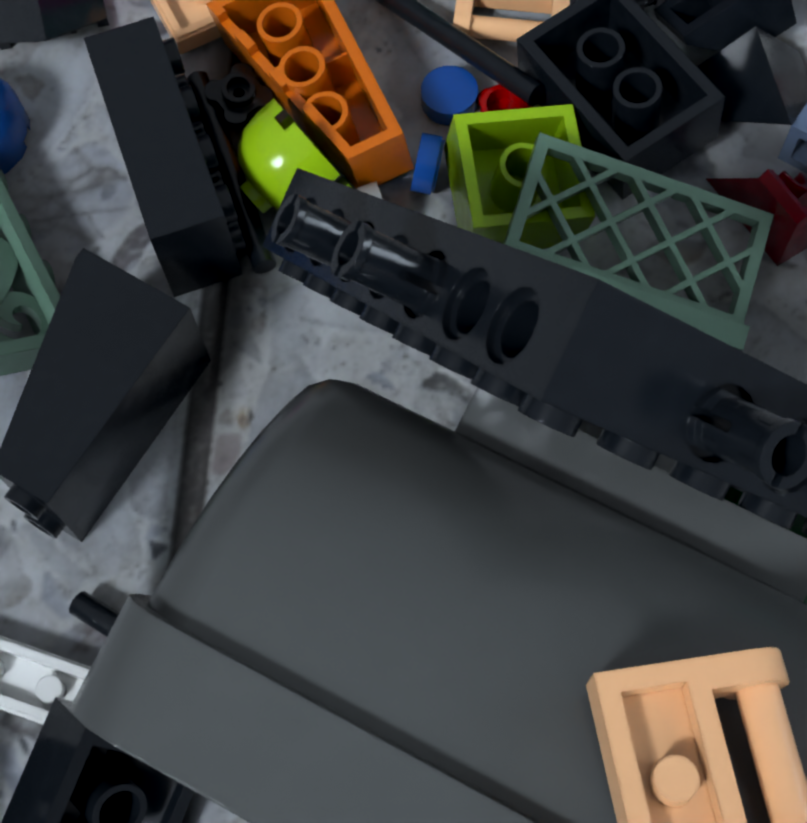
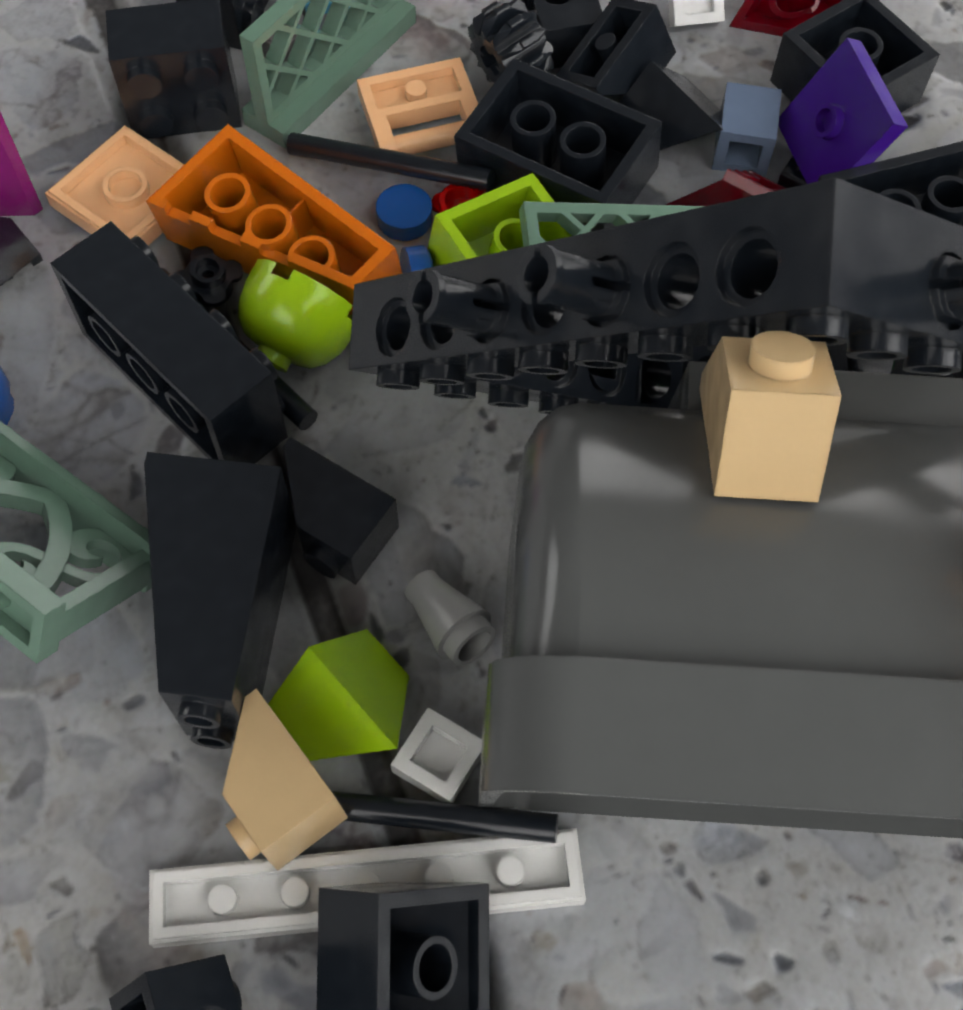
camera: 30 degrees left, 5 degrees down
(66, 590) = (275, 789): none -> tan slope
(150, 527) = (343, 698): none -> lime slope
(240, 366) = (337, 514): none -> black slope
(470, 478) = (769, 416): none -> tan slope

